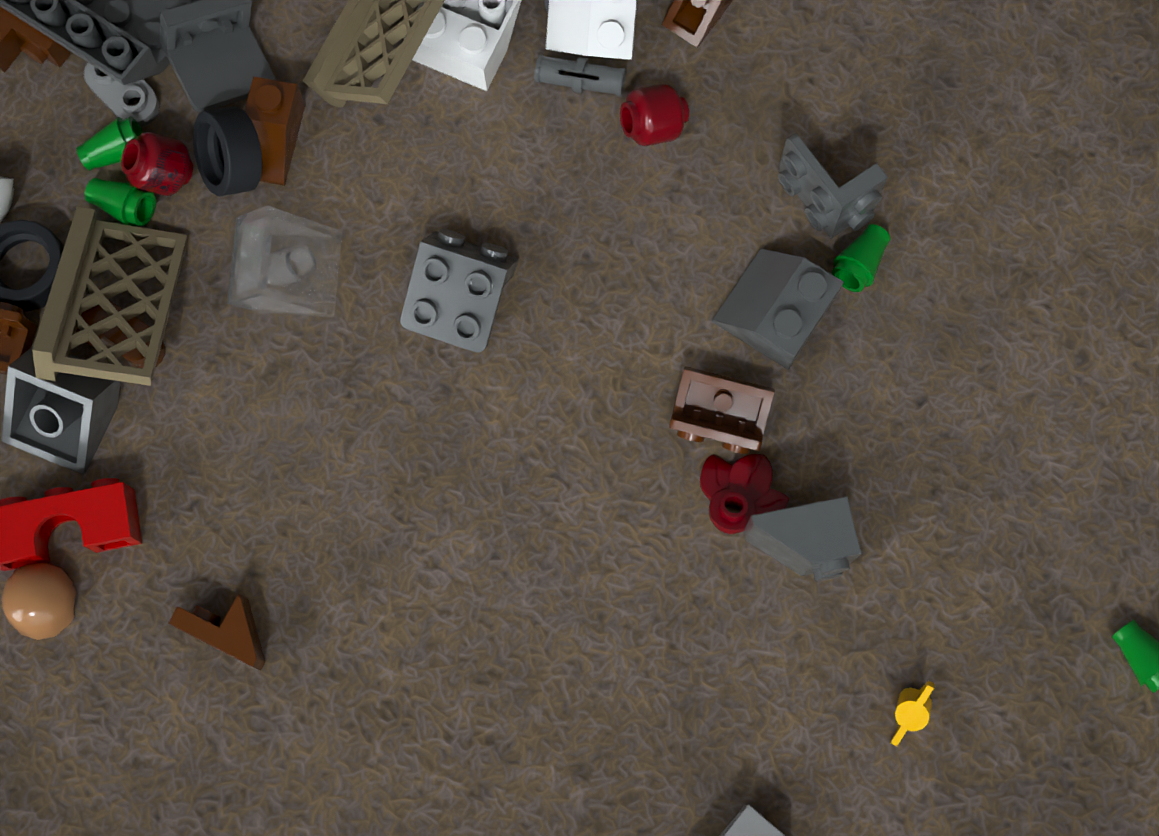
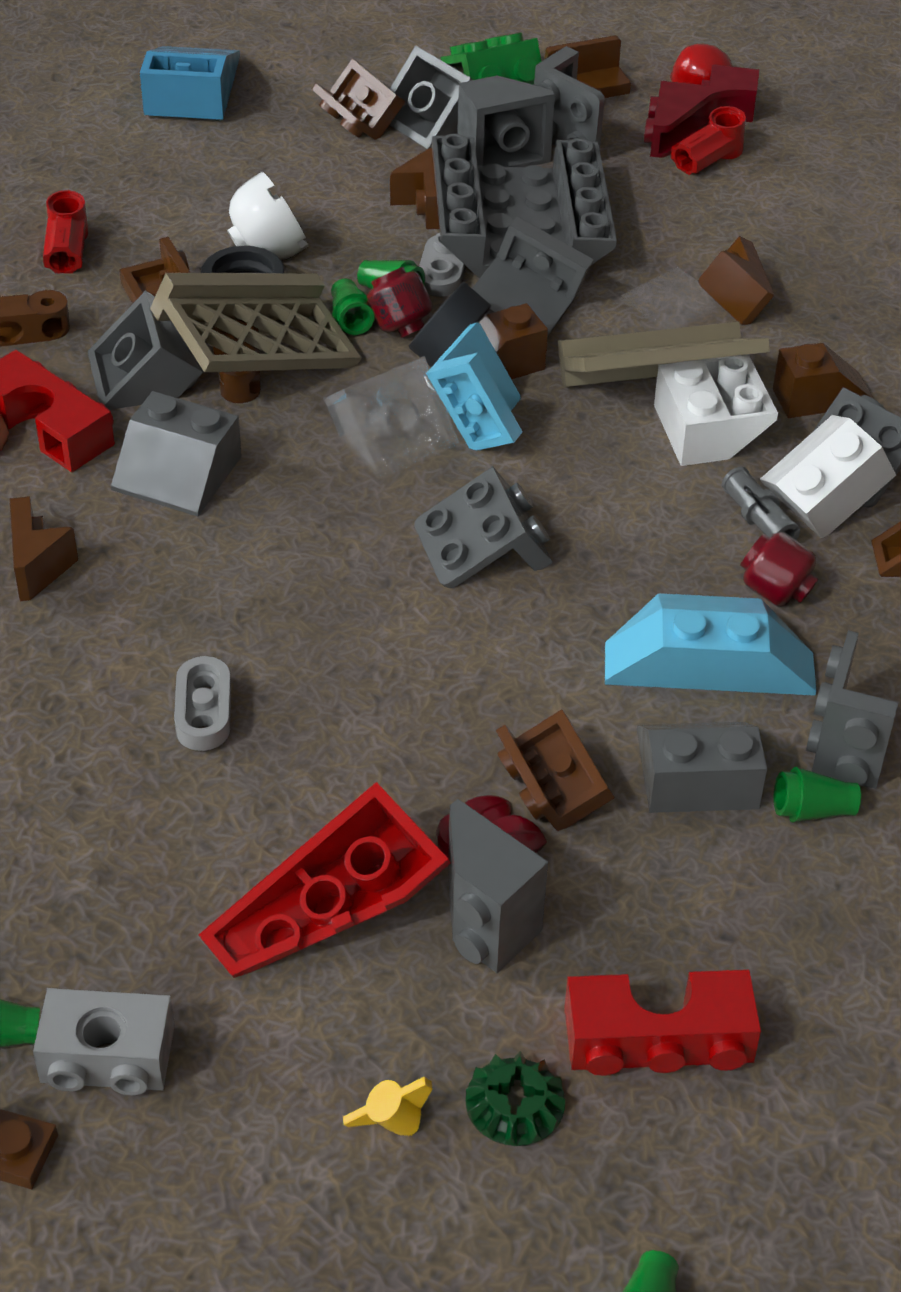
camera: 50 degrees right, 30 degrees down
(199, 457) = (177, 453): none -> slope
(312, 188) = (477, 390): none -> medium azure bracket
(479, 606) = (202, 706): none -> light grey plate
(681, 218) = (709, 647): none -> medium azure wedge
(722, 618) = (340, 877): none -> red wedge
(930, 627) = (539, 1109): none -> dark green gear
(993, 467) = (614, 1032): none -> red arch

